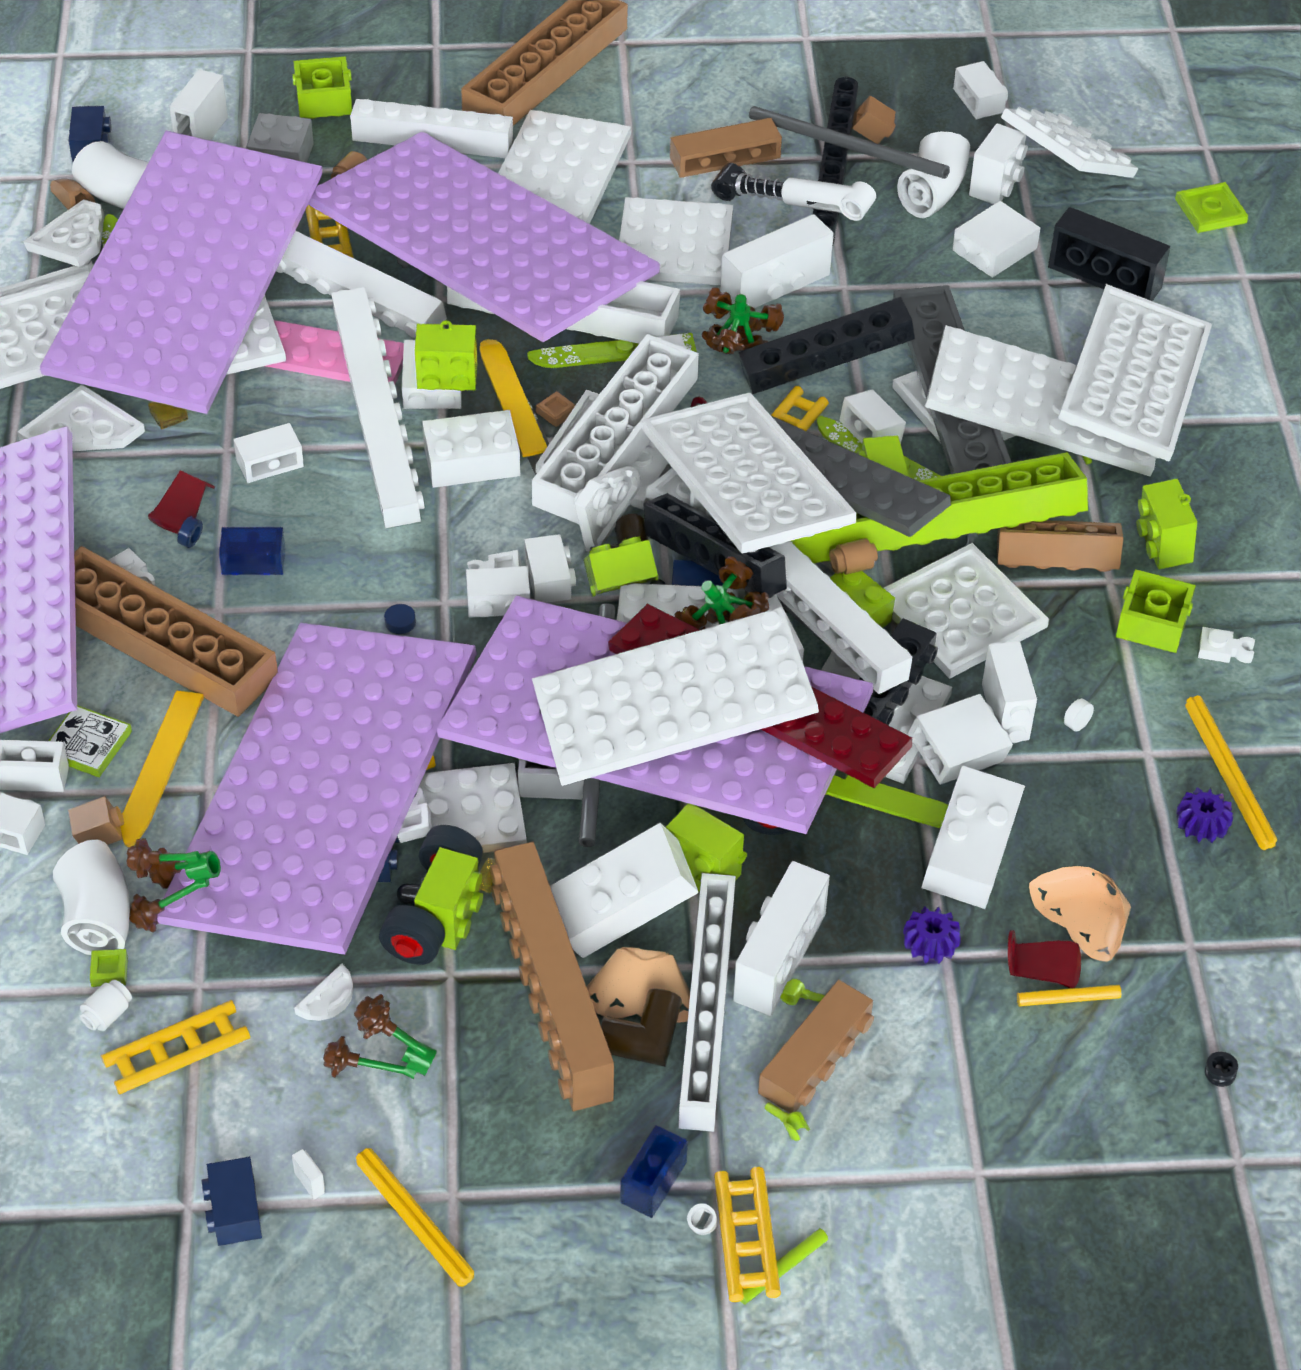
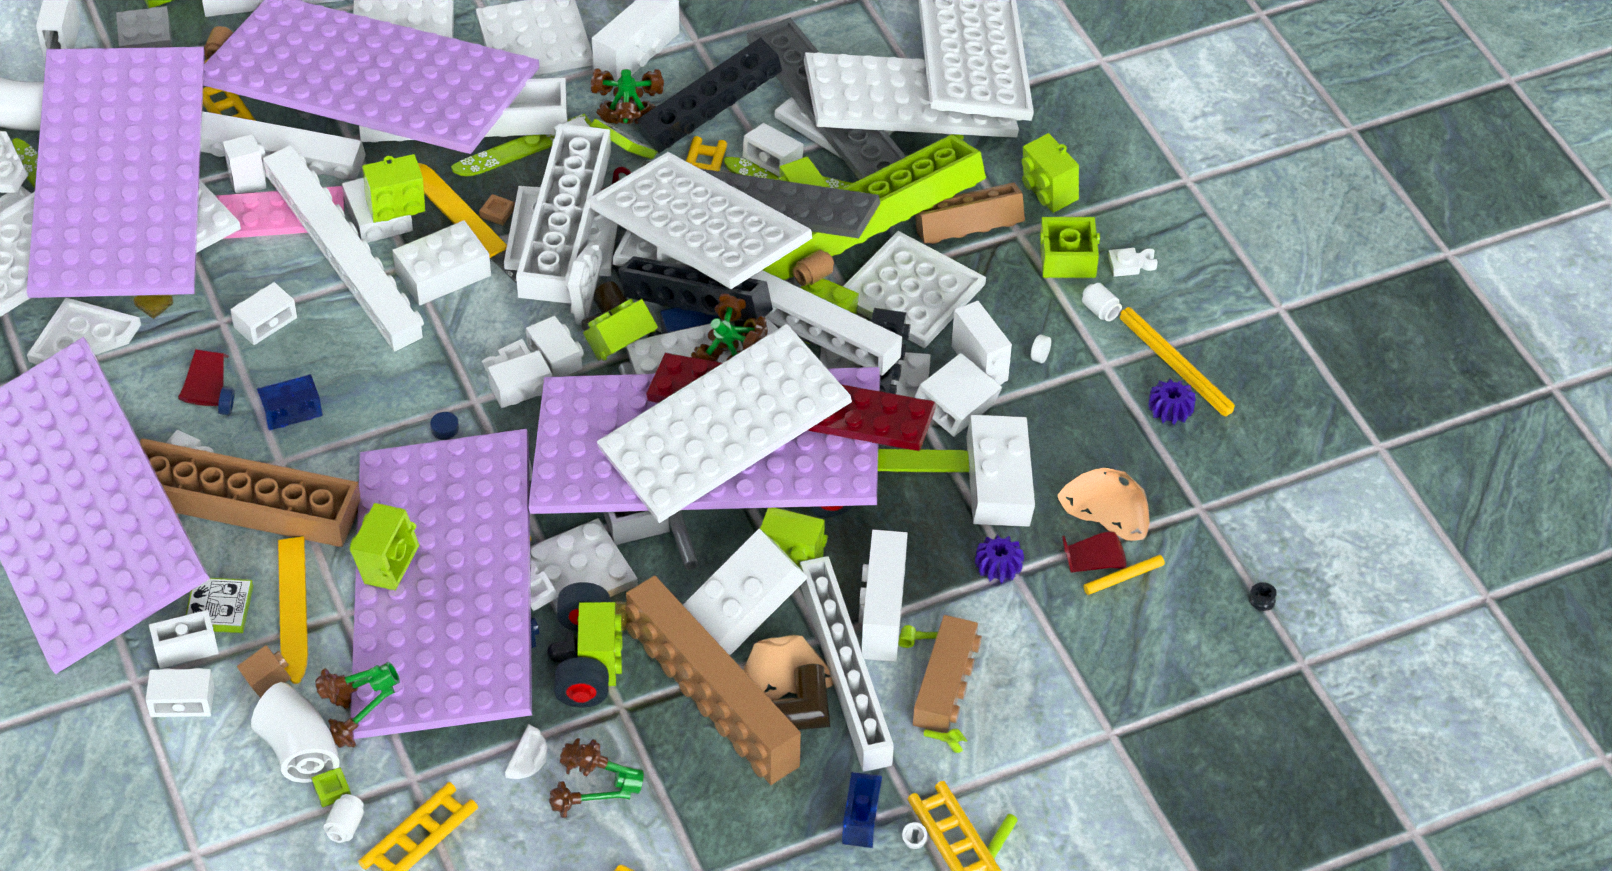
camera: 20 degrees left, 0 degrees up
(267, 727) = (384, 546): none -> lime brick
(314, 295) = (245, 164): none -> white brick
(717, 369) = (626, 140): none -> lime tile
(1169, 681) = (1101, 302): none -> white brick

